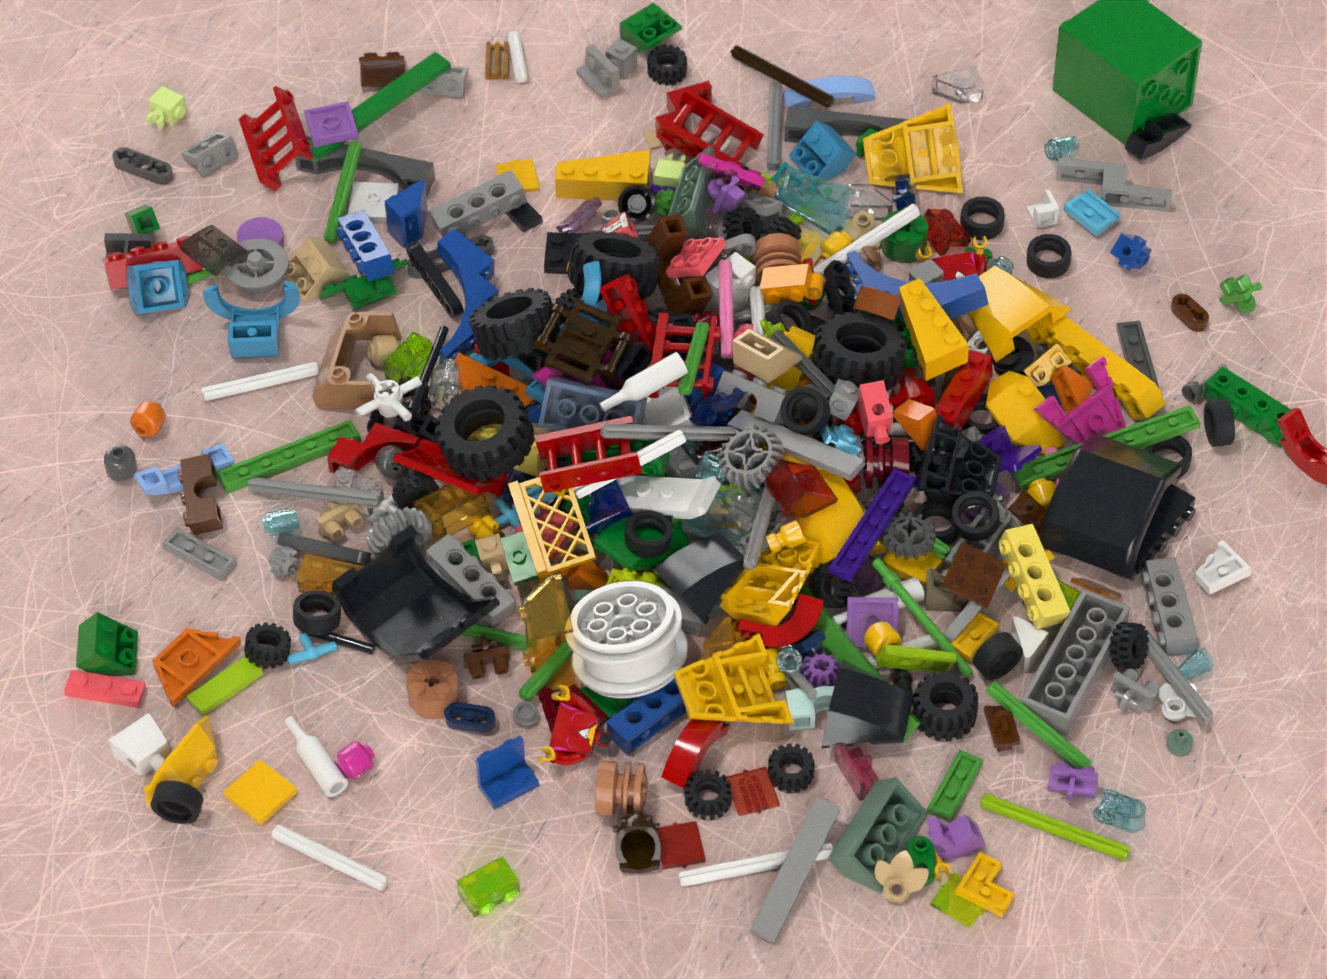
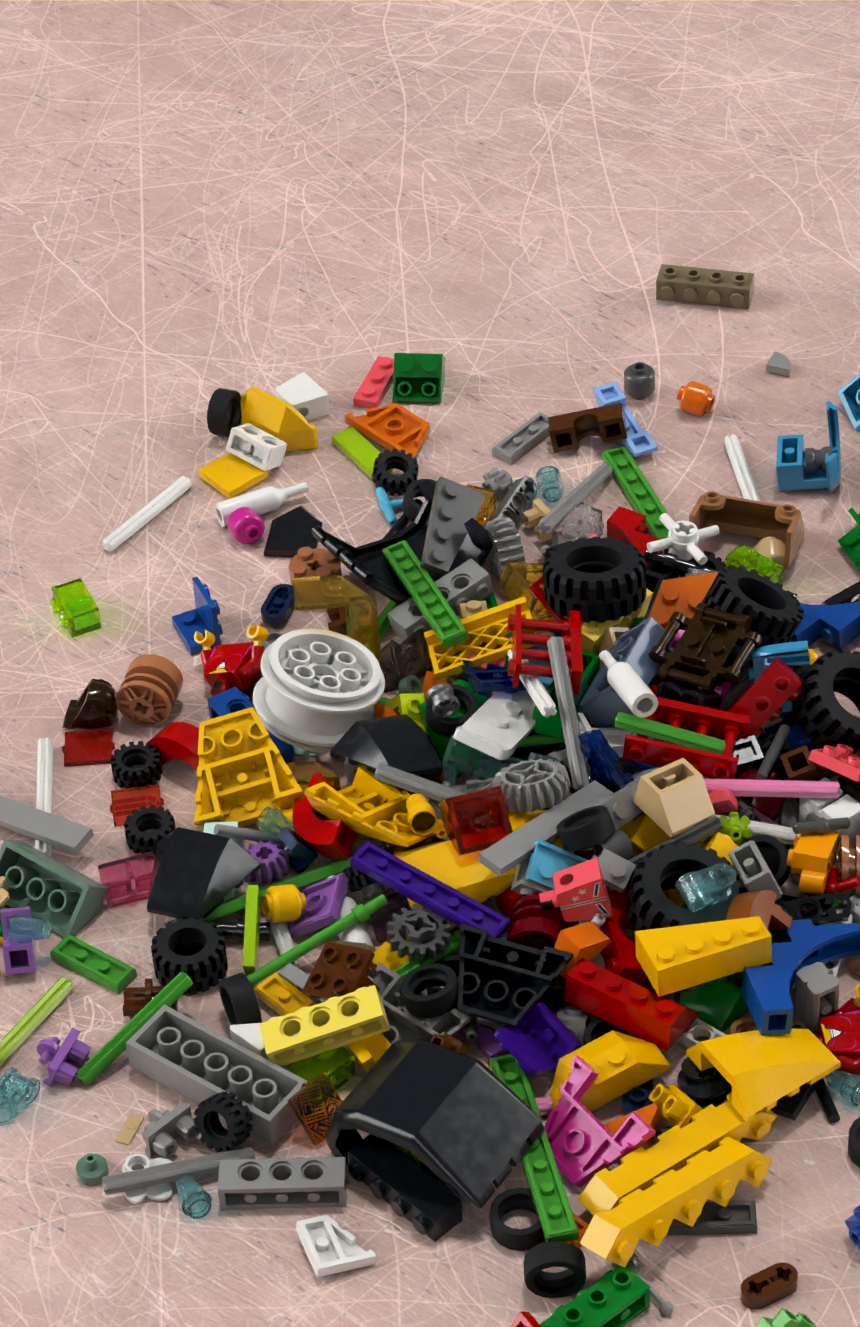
camera: 100 degrees right, 10 degrees down
(83, 365) = (778, 364): none -> light grey tile
(232, 766) = (256, 446): none -> white brick
(253, 311) = (816, 459): none -> dark grey wheel
(355, 723) = (291, 533): none -> black tile
(382, 562) = (450, 509): none -> dark grey wing
(478, 580) = (425, 595): none -> bright green tile
(659, 524) = (443, 700): none -> flat silver wheel
(679, 310) = (773, 752): none -> dark grey bar
(764, 274) = (820, 825): none -> dark grey piece
(818, 311) = (753, 869): none -> light grey brick
(871, 320) = (706, 886): none -> clear light blue piece
(953, 820) = (27, 929): none -> clear light blue cone
(1128, 728) = (129, 1129): none -> tan piece
(1151, 352) = (674, 1196): none -> yellow brick

